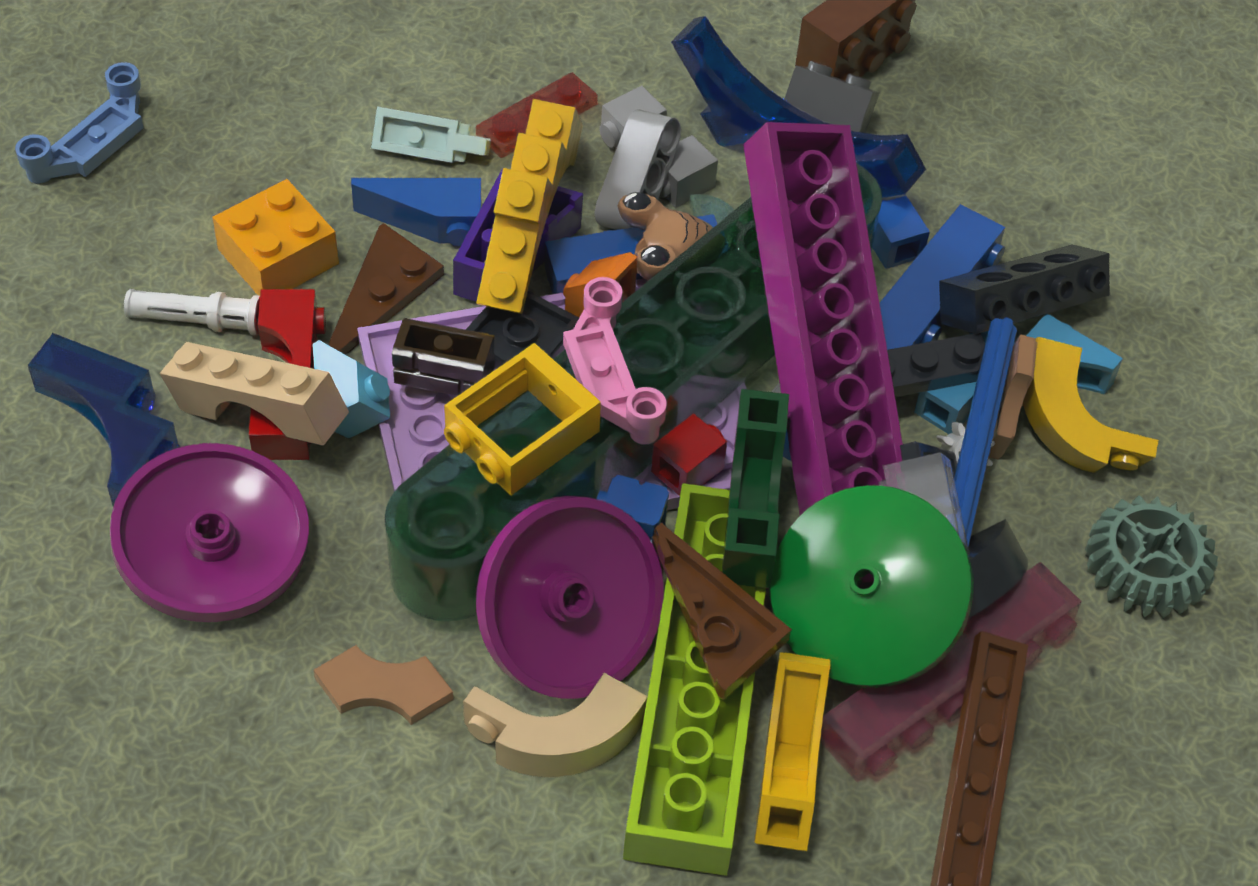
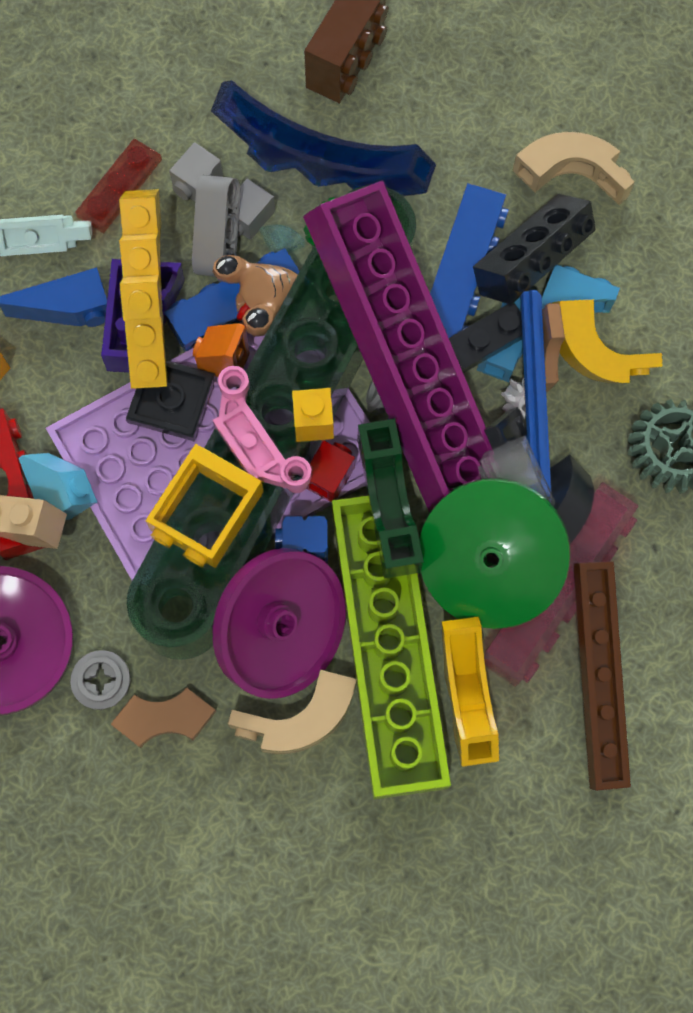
camera: 15 degrees left, 20 degrees up
(309, 602) = (88, 668): none -> light grey gear
(387, 282) = (54, 375): reddish brown wing -> none
(441, 357) = (122, 446): dark brown brick -> none
(688, 358) = (313, 414): none -> yellow brick
(725, 621) = (398, 613): reddish brown wing -> none
(832, 98) = (343, 112): dark grey brick -> none
(899, 233) = (430, 216): blue brick -> none
(1102, 212) = (573, 154): none -> tan arch

